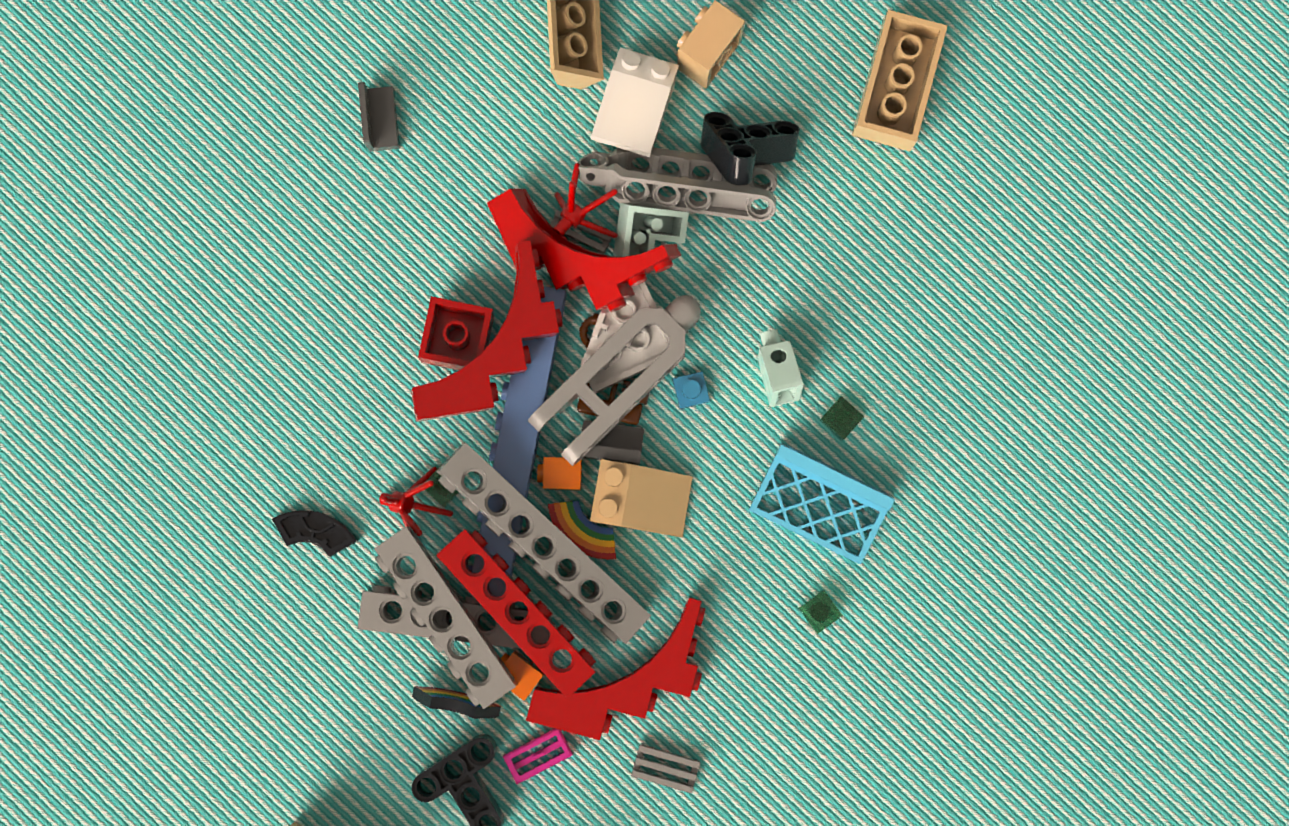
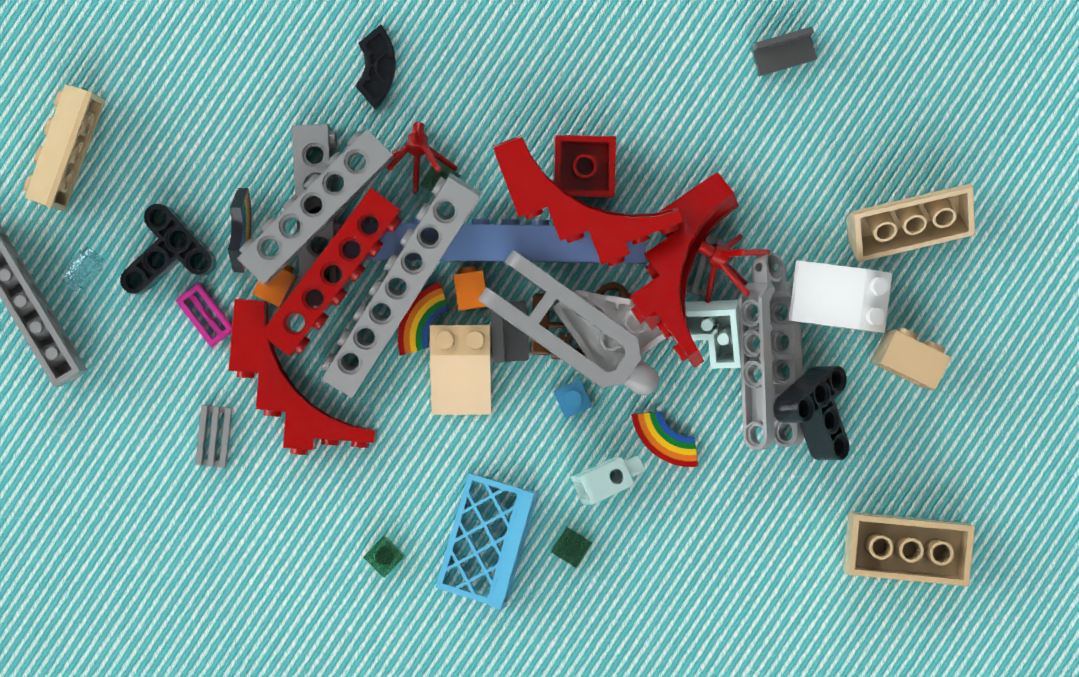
camera: 85 degrees right, 5 degrees up
(750, 306) = (663, 441): none -> tile

